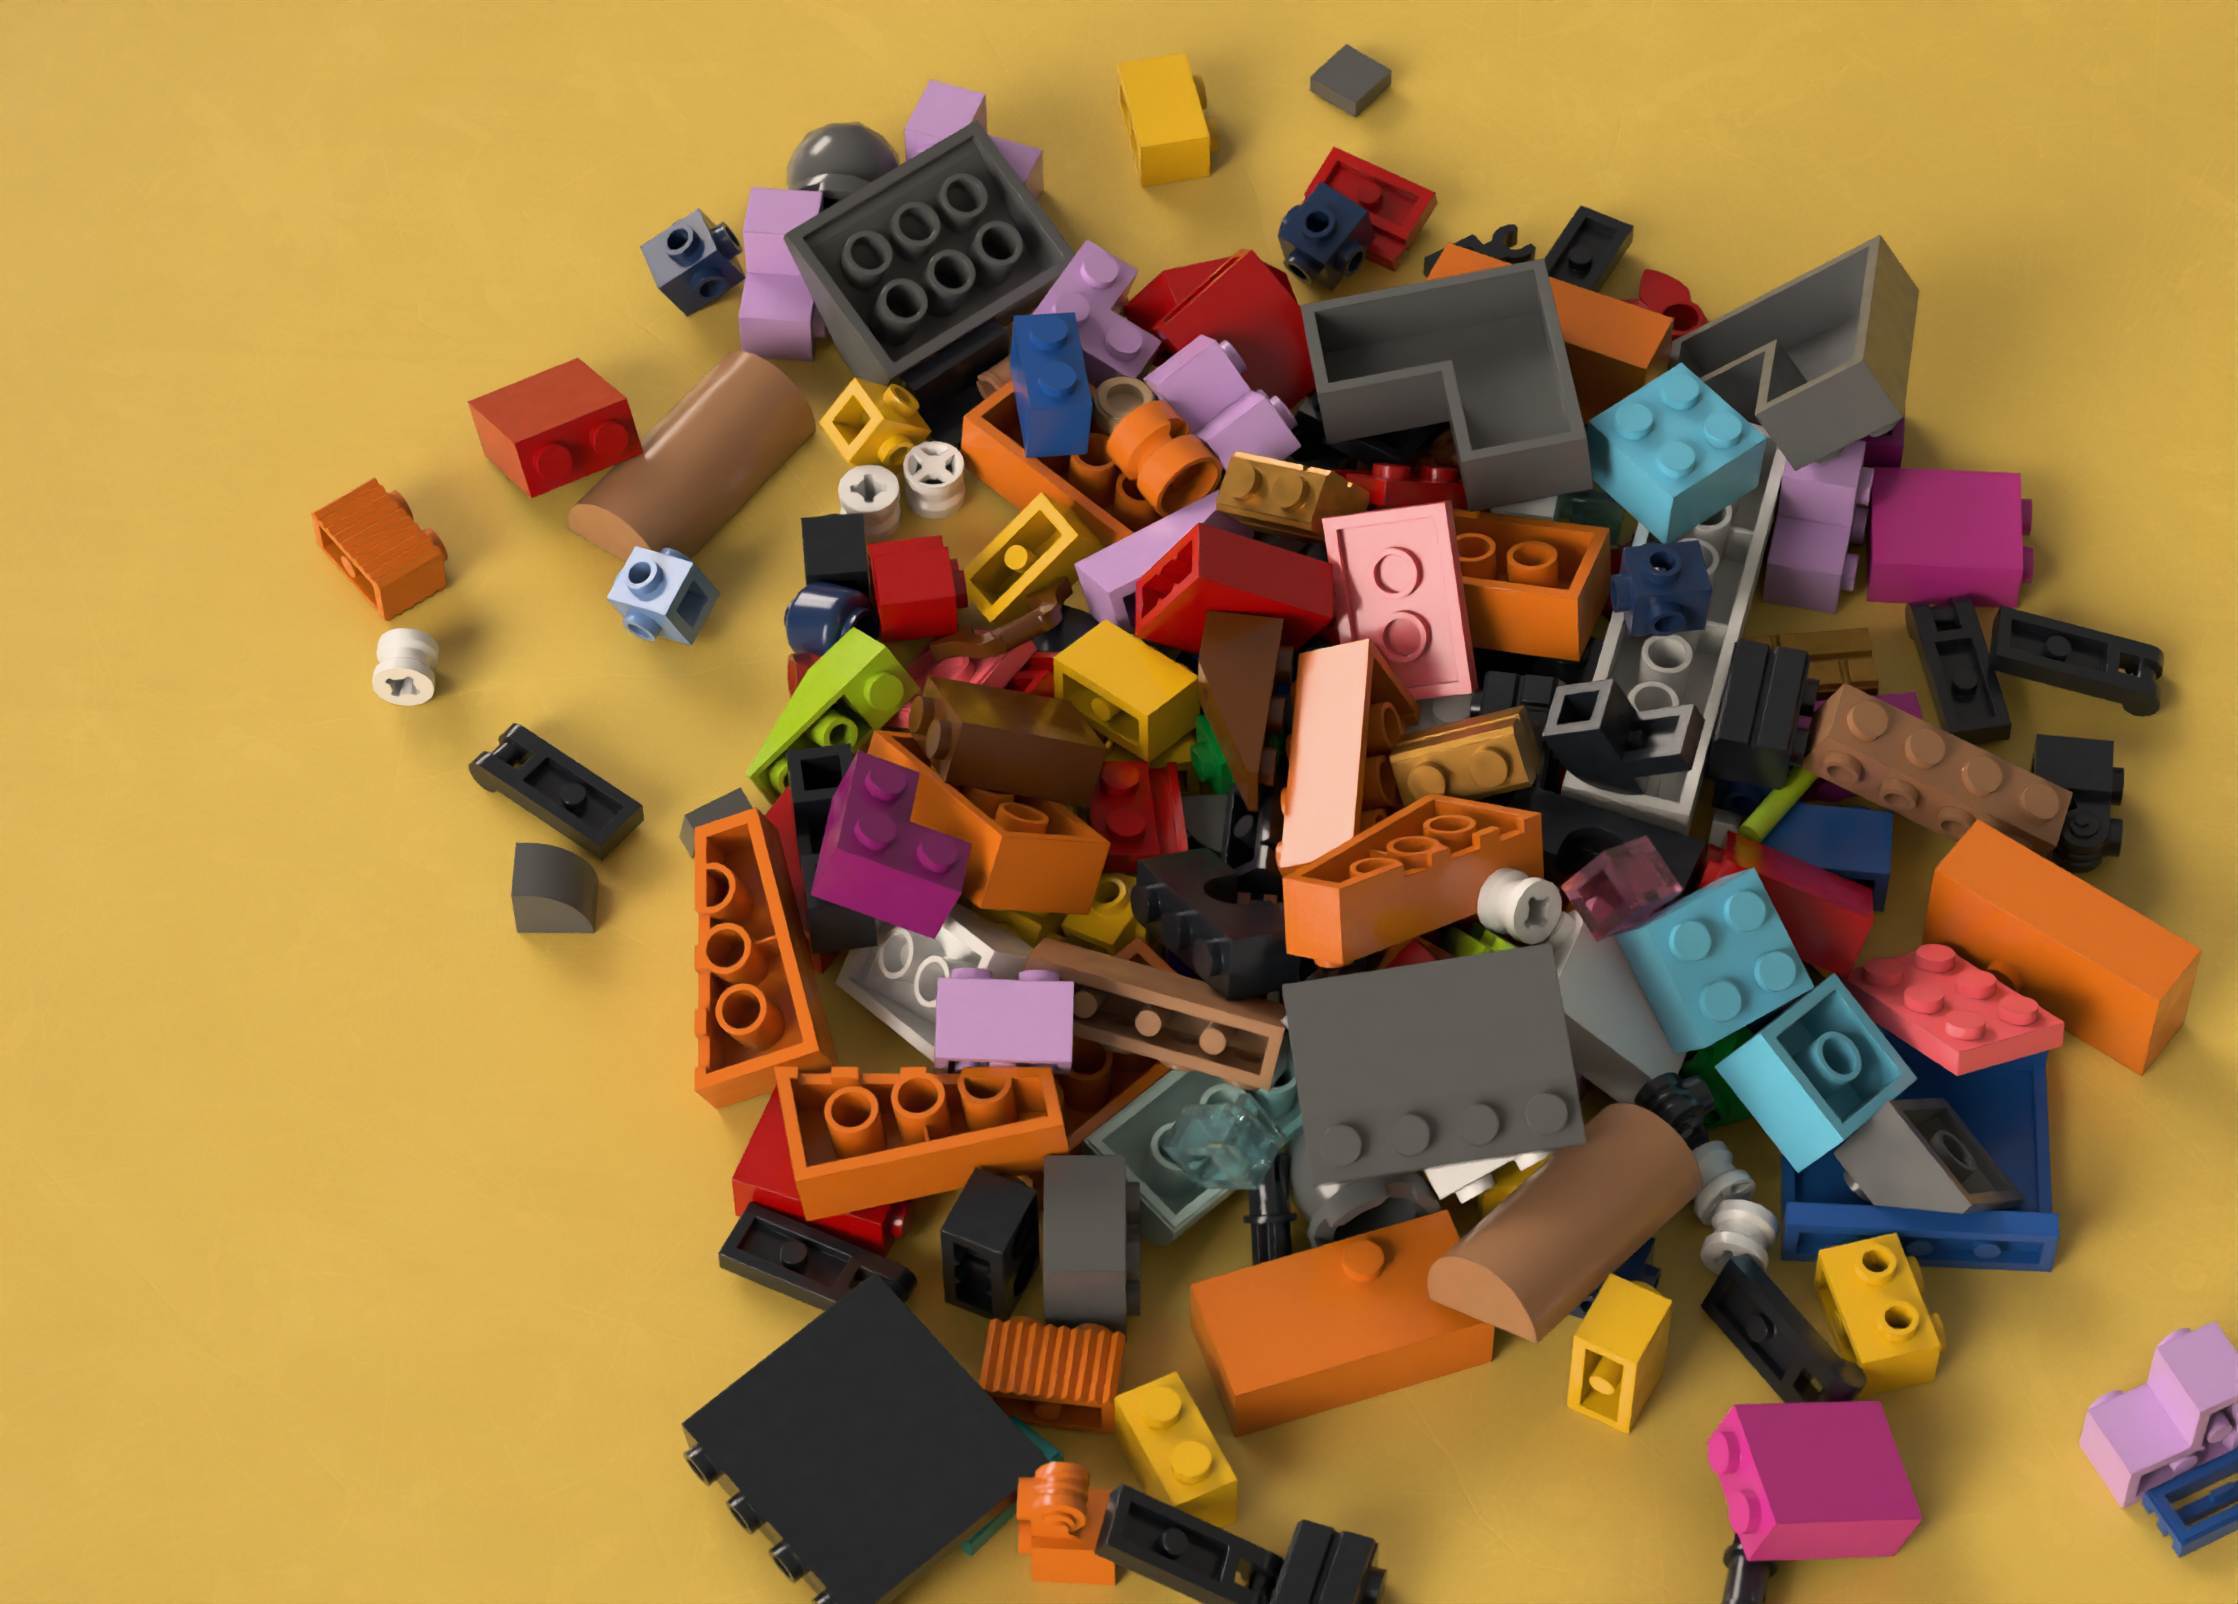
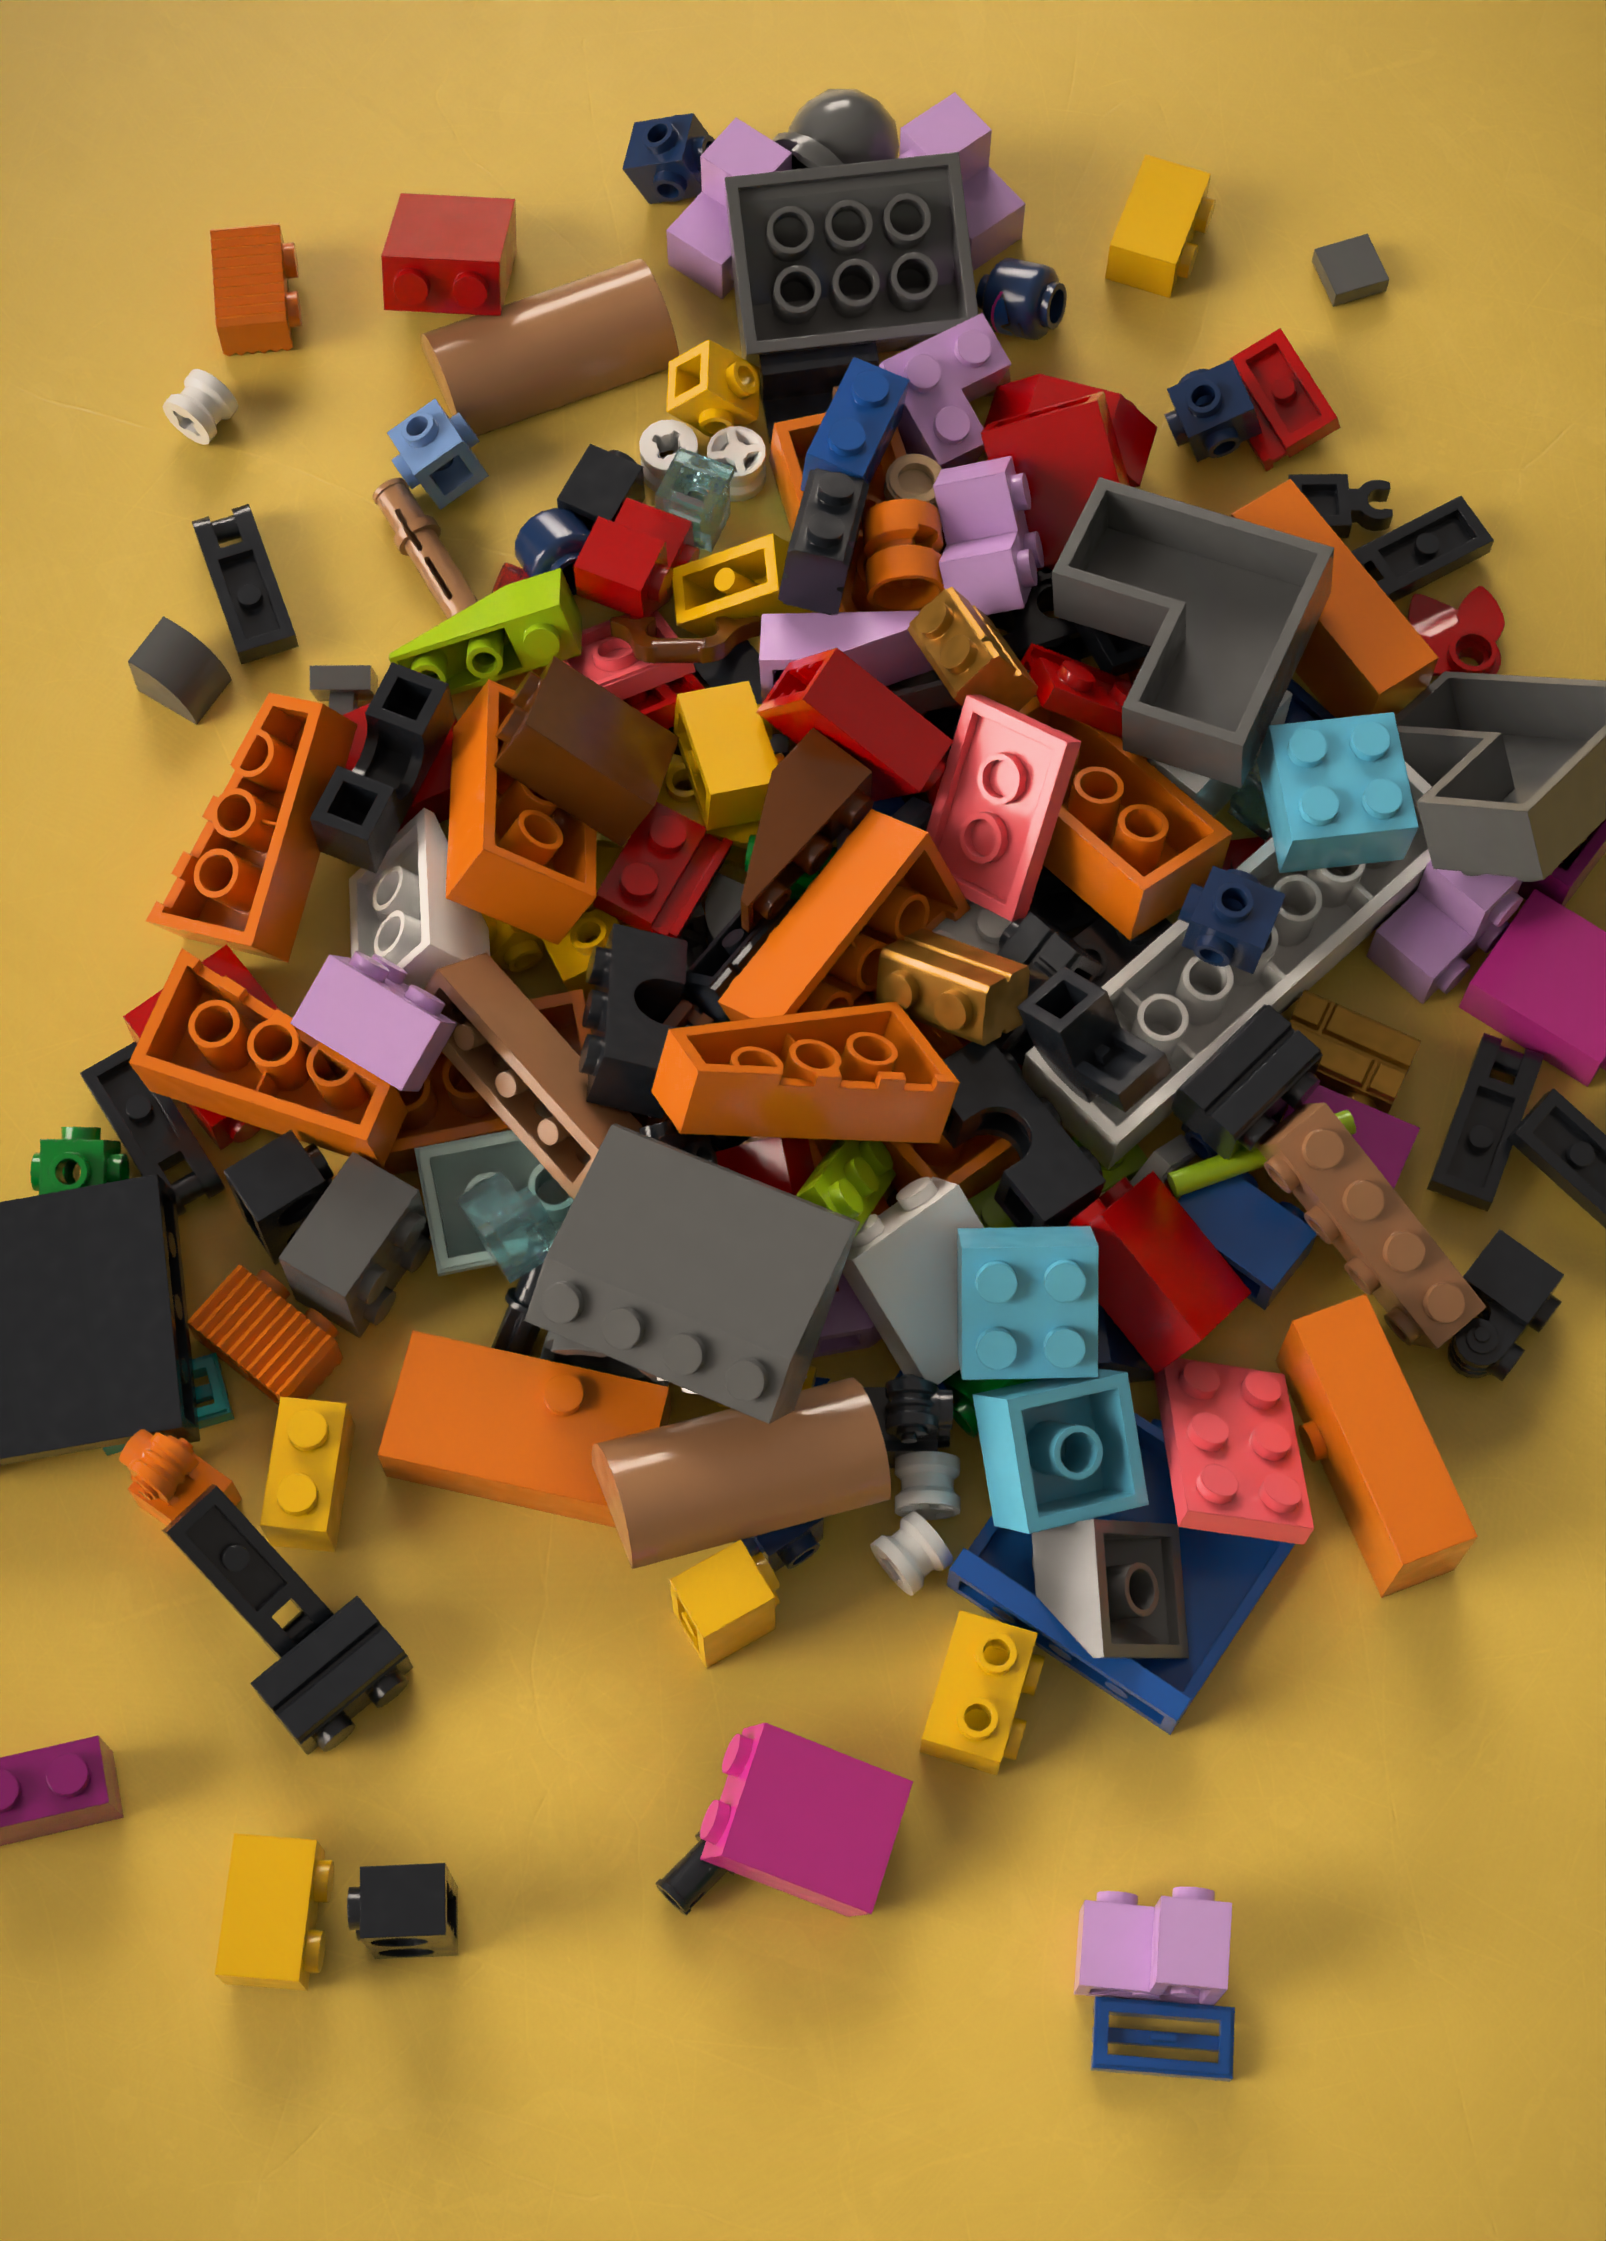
camera: 30 degrees right, 15 degrees up
(654, 659) = (419, 539): none -> medium nougat pin
(774, 1305) = (79, 1148): none -> green brick
(880, 858) = (379, 809): magenta brick -> none
(928, 507) = (699, 492): none -> clear light blue brick
(1092, 475) = (823, 541): none -> black brick
(1094, 218) = (1022, 298): none -> dark blue head
(1519, 905) = (890, 1155): white wheel -> none
(1621, 887) = (983, 1192): clear pink brick -> none
(1778, 1337) = (878, 1672): black plate -> none

